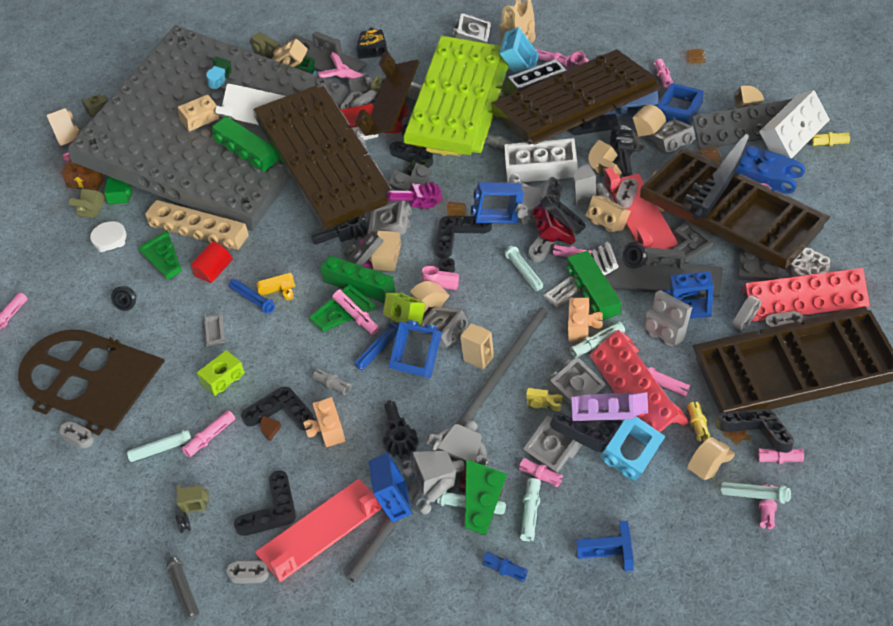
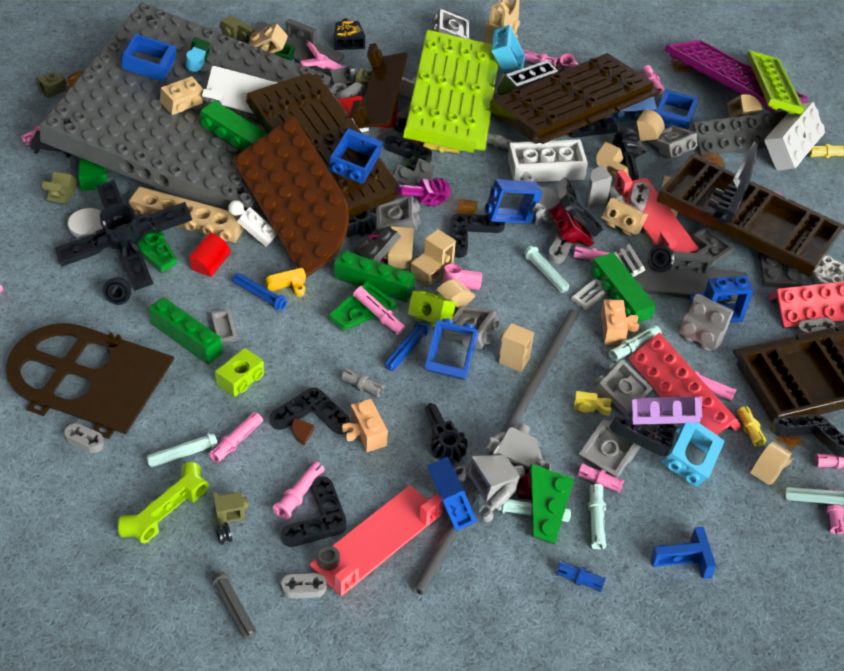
camera: 15 degrees left, 0 degrees up
(62, 126) = (20, 105): tan brick -> none
(81, 177) = (48, 159): clear orange brick -> none
(115, 514) = (145, 524): none -> lime plate
(132, 250) = (125, 240): none -> black piece
(178, 334) = (185, 330): none -> green brick
(181, 91) = (151, 47): none -> blue window
(251, 489) = (293, 497): none -> bright pink pin
(253, 231) = (253, 223): none -> white plate
(271, 546) = (328, 557): none -> dark grey tile
(291, 203) = (296, 194): none -> reddish brown plate
(350, 151) = (352, 140): none -> blue window
(418, 255) = (438, 253): none -> tan brick
(444, 262) = (466, 260): black bush -> none
(746, 64) = (721, 68): none -> magenta plate
(747, 313) = (781, 318): light grey beam -> none
(770, 169) = (780, 177): blue brick -> none
(781, 71) = (774, 83): none -> lime plate

